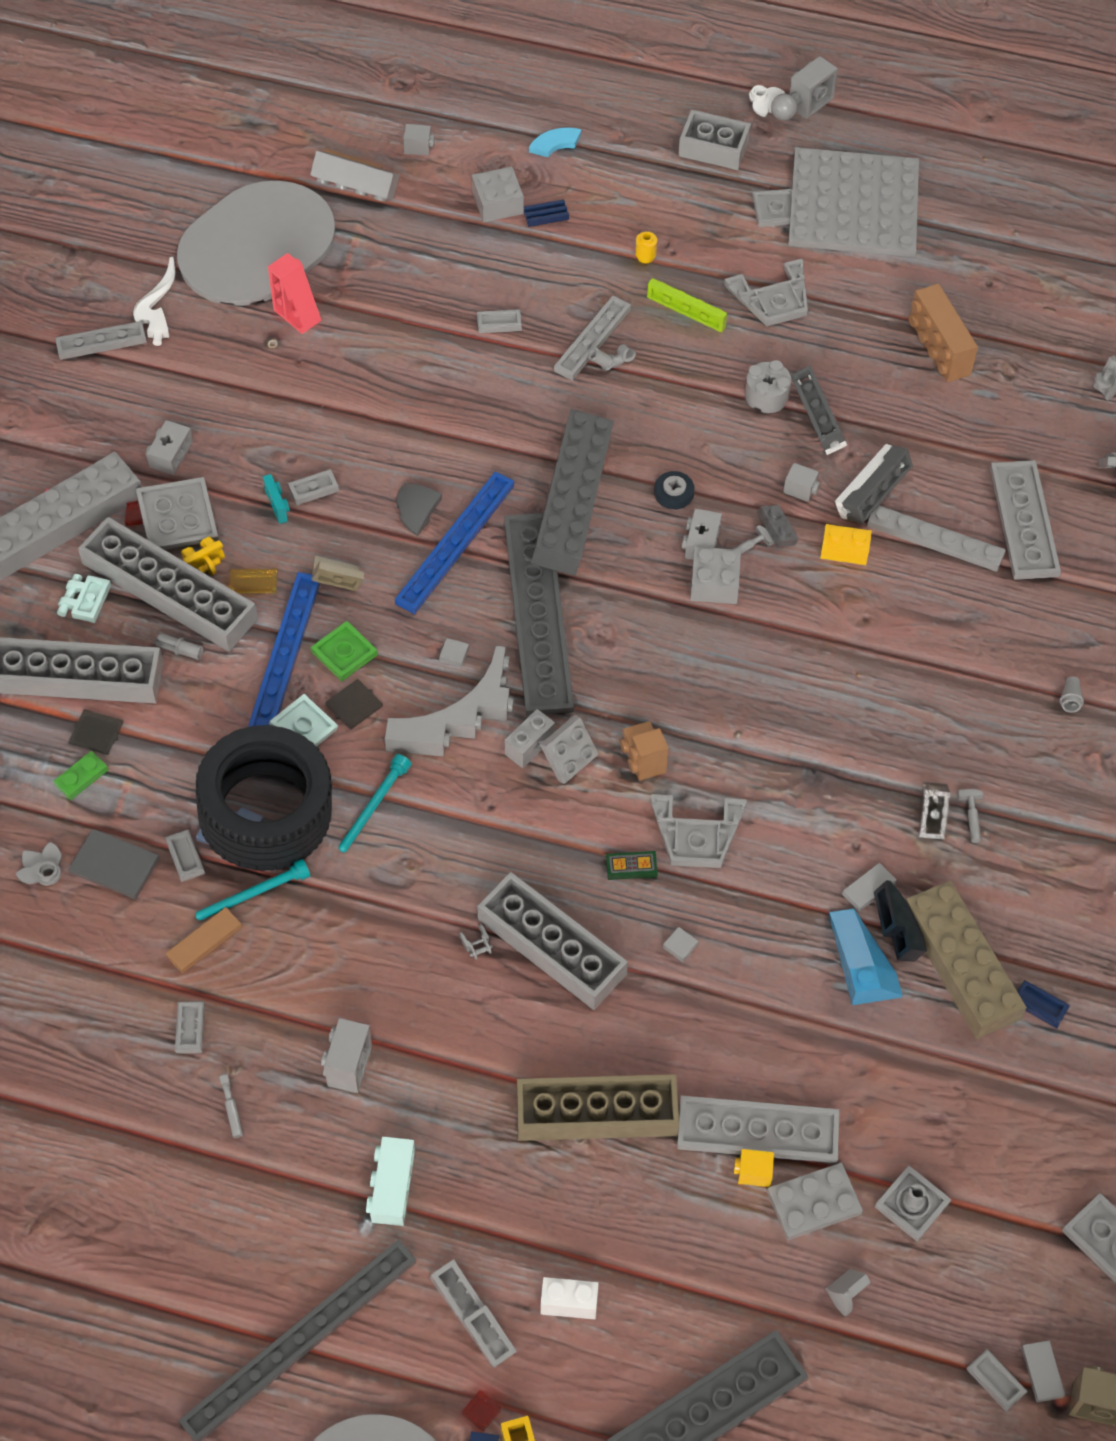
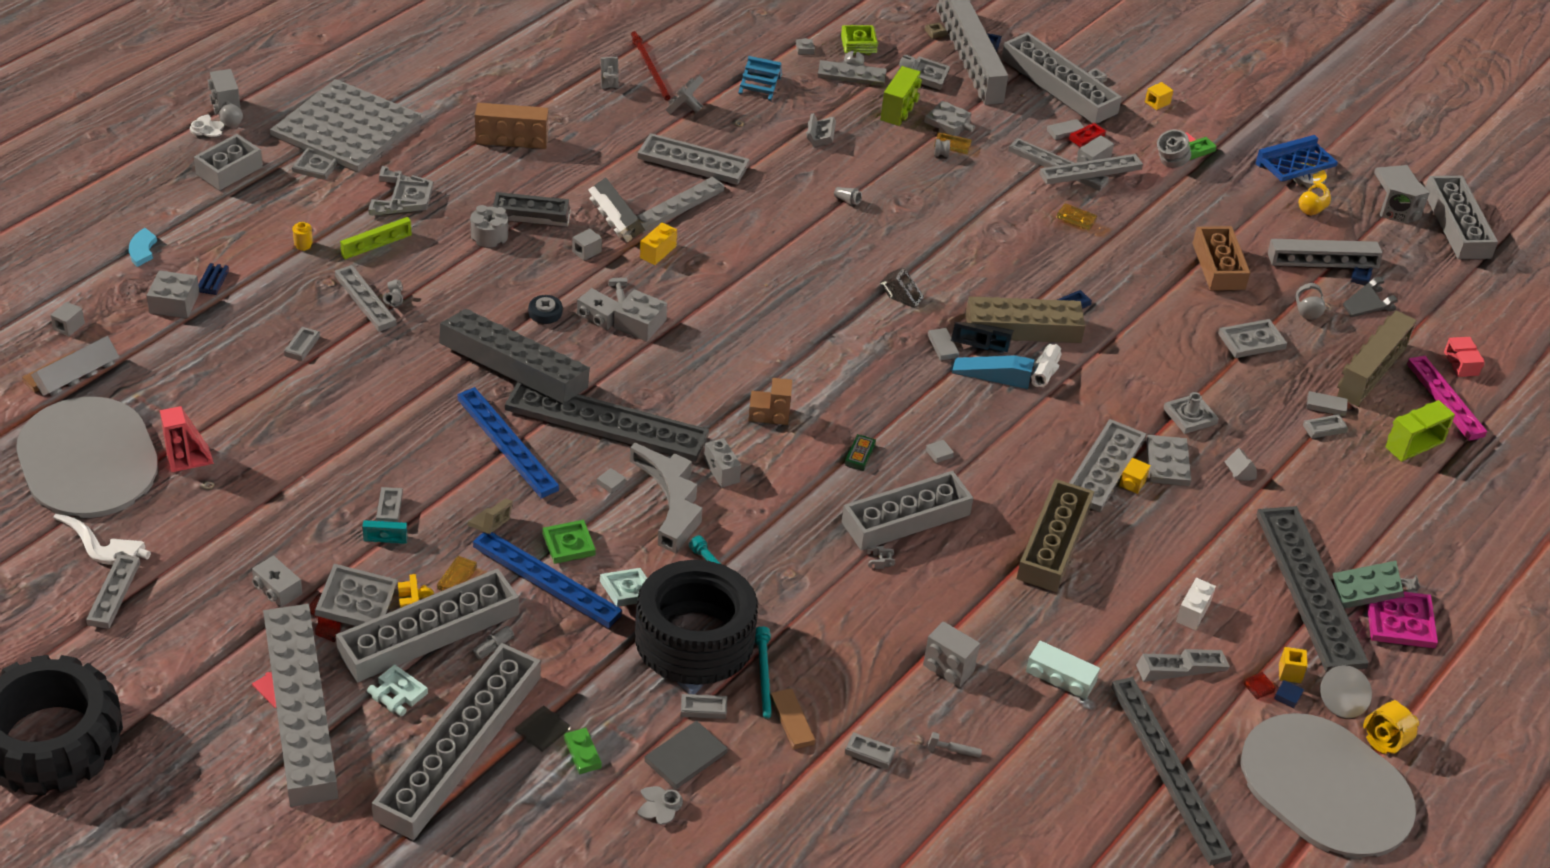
camera: 70 degrees left, 15 degrees down
(354, 704) = (620, 555): clear smoke piece -> none
(416, 505) = (453, 451): dark grey brick -> none
(569, 749) = (748, 442): light grey plate -> none
(696, 840) = (859, 412): light grey wing -> none
(777, 525) = (623, 270): flat silver plate -> none
(892, 1008) = (1046, 365): none -> white piece
(970, 795) = (917, 277): light grey piece -> none

